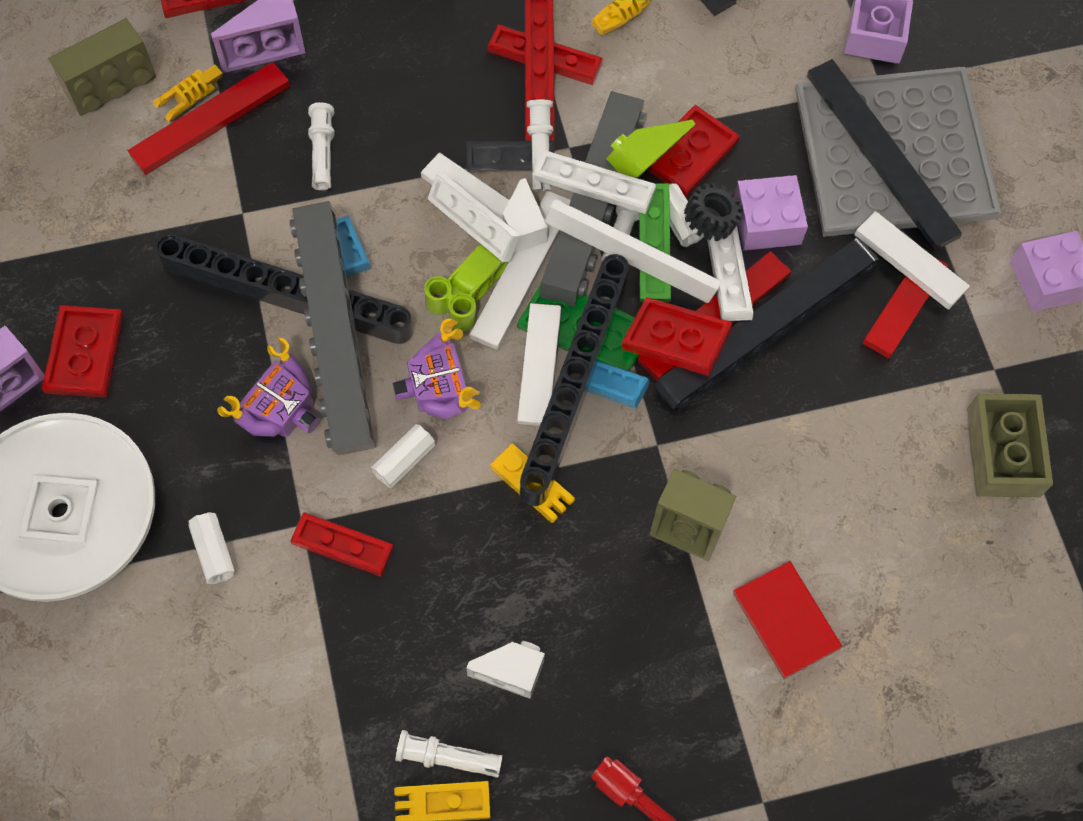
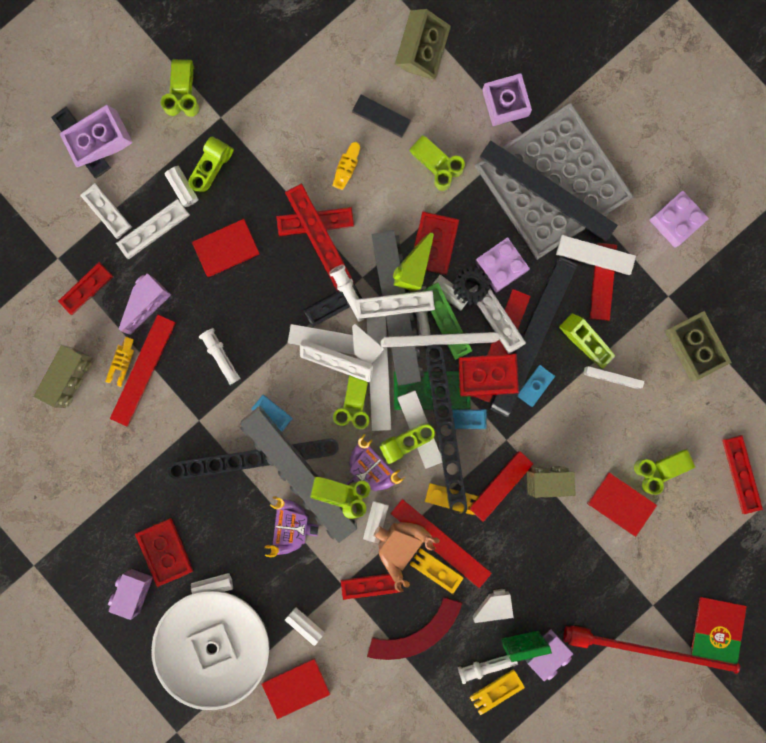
camera: 20 degrees left, 20 degrees up
(133, 425) = (219, 583): none -> white axle
(141, 635) = (295, 688): none -> red tile
(369, 661) = (419, 641): none -> dark red tile
(374, 376) = (341, 495): none -> lime piece
(409, 31) = (225, 248): none -> red tile
(417, 500) = (399, 546): none -> nougat torso
(453, 572) = (437, 571): none -> yellow hinge
(482, 538) = (446, 547): none -> red tile
(488, 363) = (394, 447): none -> lime piece
(525, 729) = (526, 646): none -> green tile
(554, 778) = (547, 665): none -> lavender brick
(610, 498) = (500, 486): none -> red tile
(738, 391) = (535, 385): none -> dark azure plate
(747, 59) = (436, 161): none -> lime piece
(846, 364) = (587, 340): none -> lime slope
(860, 431) = (612, 377): none -> white tile
(877, 597) = (664, 470): none -> lime piece
(1000, 672) = (742, 474): none -> red tile

